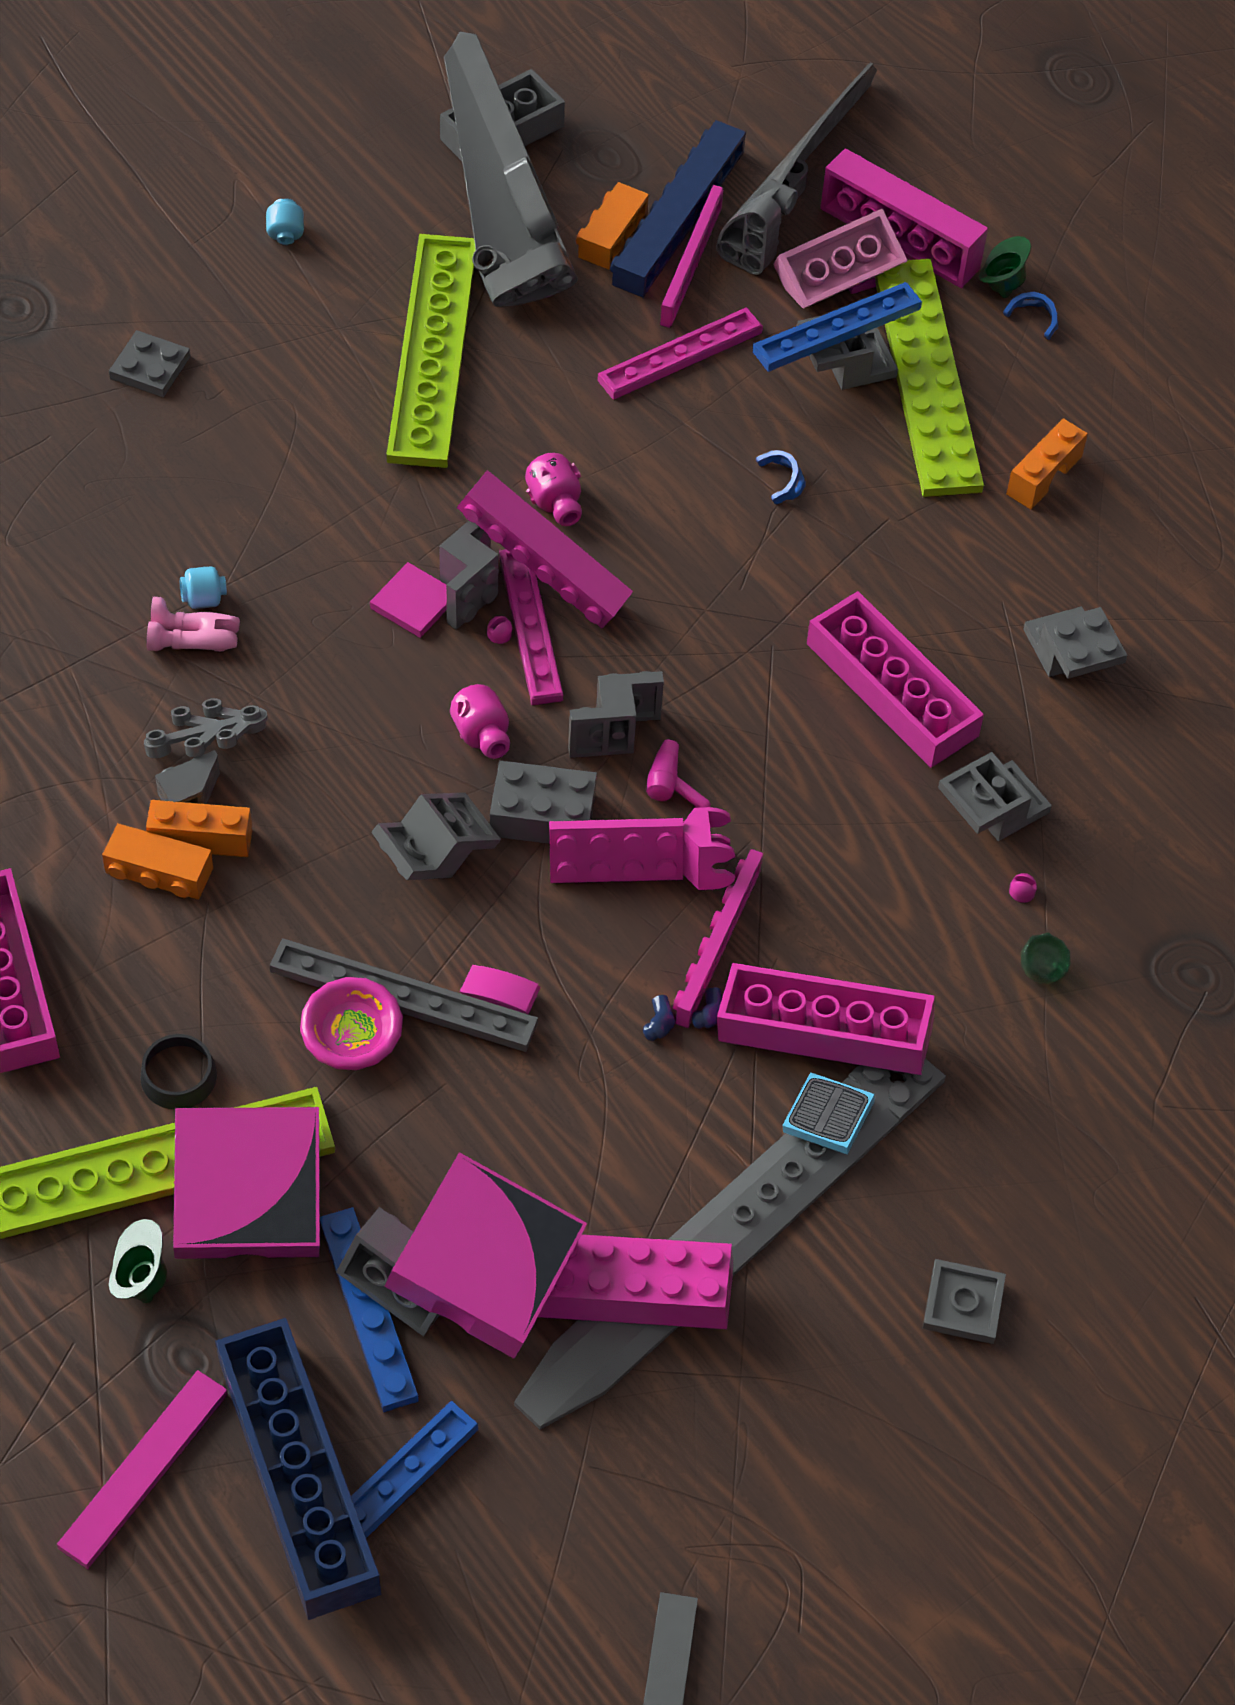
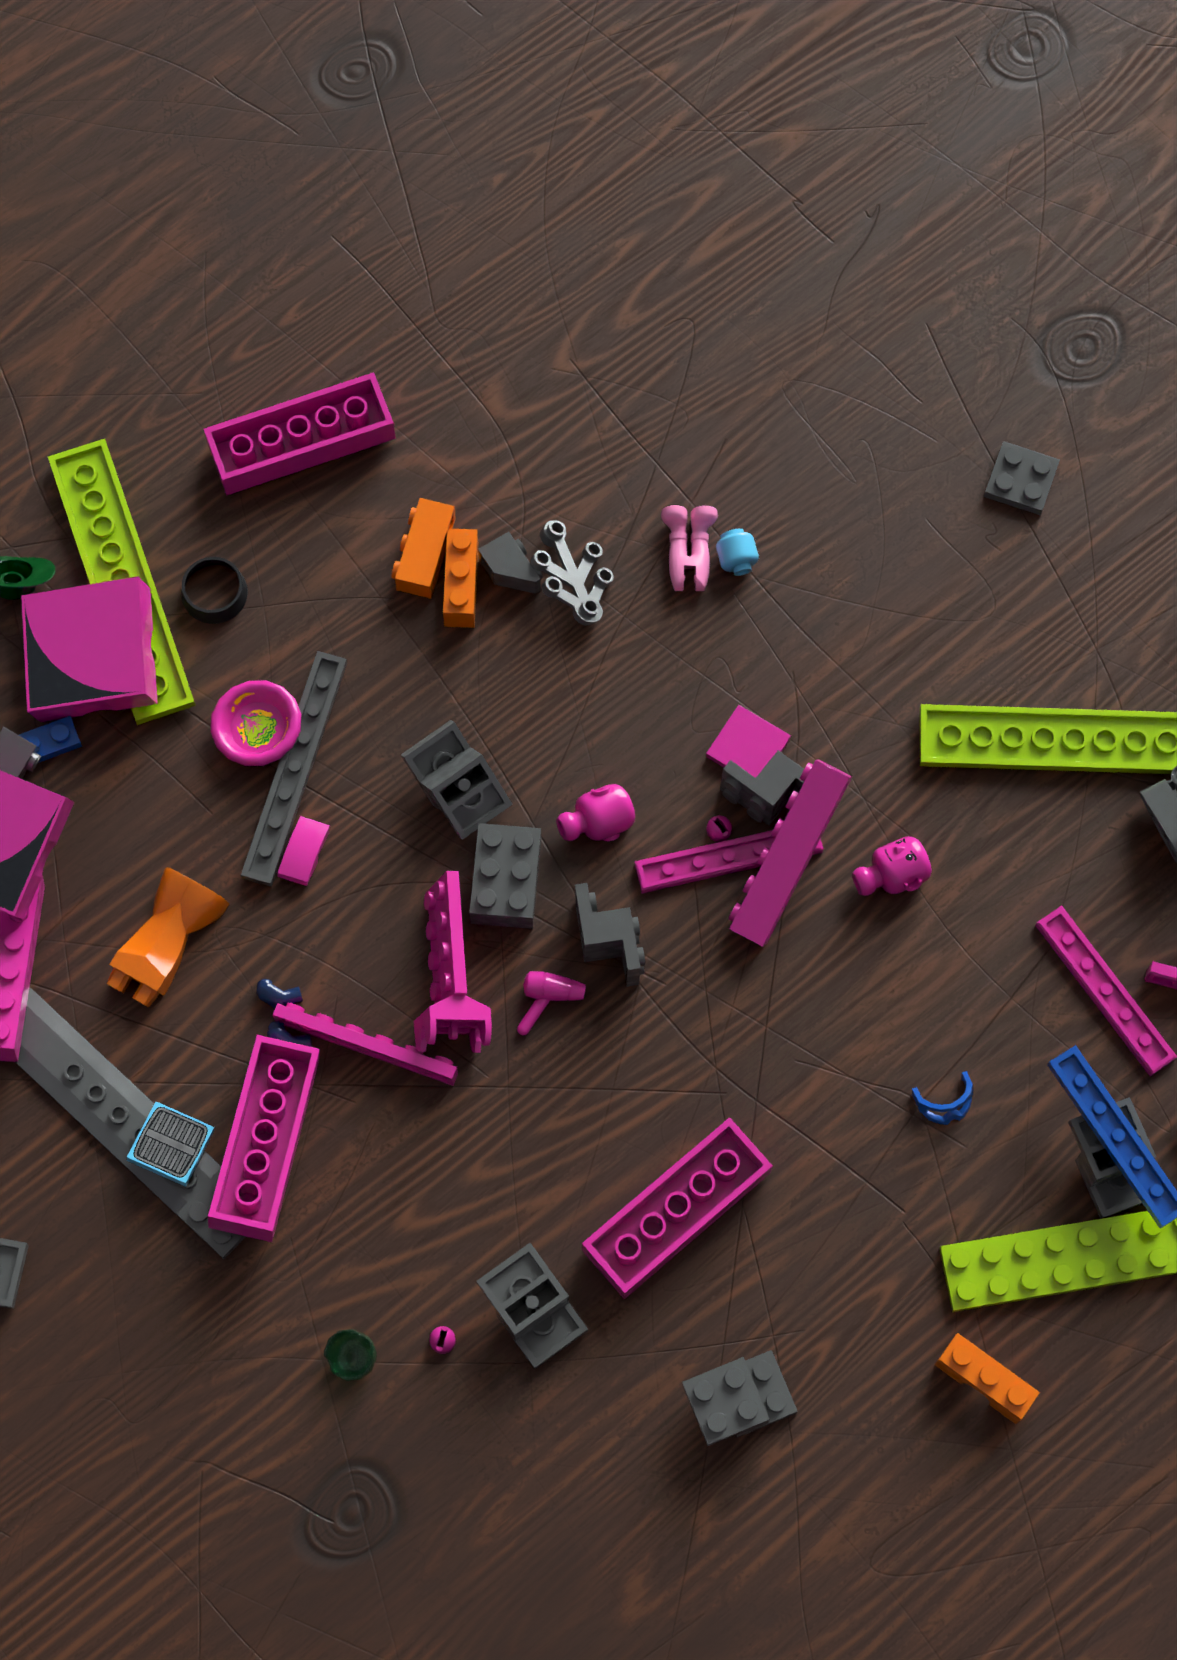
camera: 90 degrees right, 15 degrees up
(603, 1130) = (158, 946): none -> orange hips

